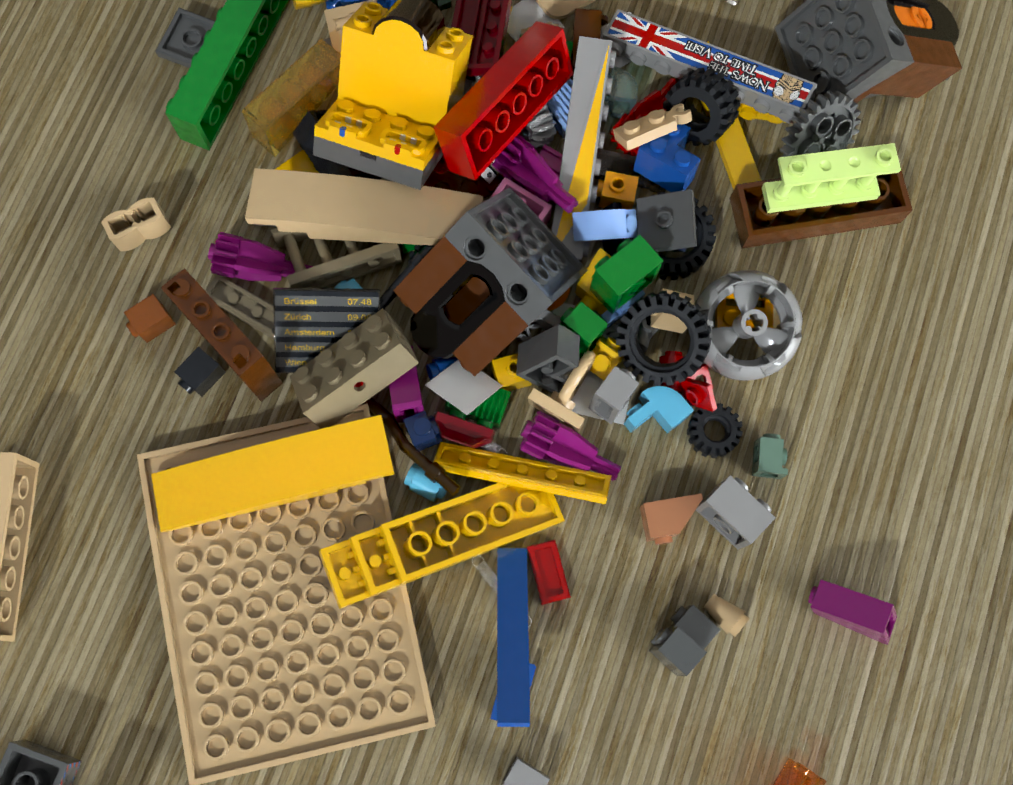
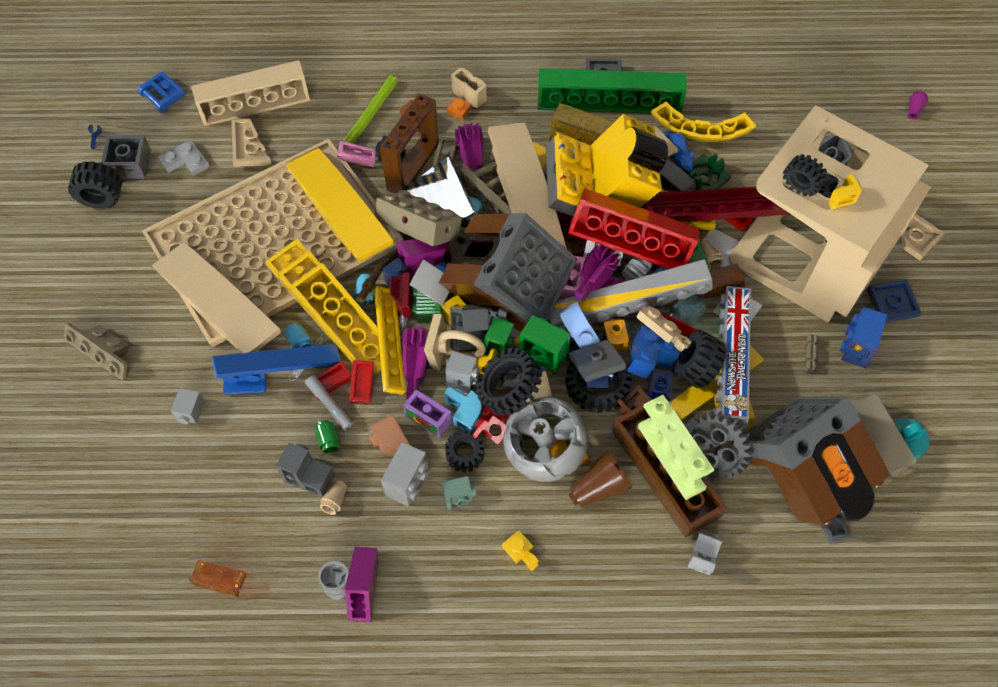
camera: 75 degrees right, 15 degrees down
(61, 684) = (184, 154): none -> light grey plate
(89, 583) = (246, 145): none -> tan wing
(113, 385) = (371, 110): none -> lime axle
(160, 253) = (459, 108): none -> orange plate
(188, 425) = (357, 154): none -> bright pink tile
(368, 699) = (216, 299): none -> tan slope
(472, 596) = (297, 336): none -> dark azure brick
(570, 529) = (362, 381): none -> red tile
(572, 588) = (337, 413): none -> light grey piece
(636, 599) = (327, 436): none -> green brick
(654, 457) = (427, 413): none -> medium lavender brick
(710, 169) = (660, 384): none -> clear blue brick
(719, 206) = (633, 400): none -> reddish brown bracket
(813, 283) = (600, 481): none -> reddish brown cone
(844, 644) = (333, 579): none -> light grey wheel
(860, 411) = (519, 549): none -> yellow plate
(932, 211) = (705, 552): none -> light grey brick

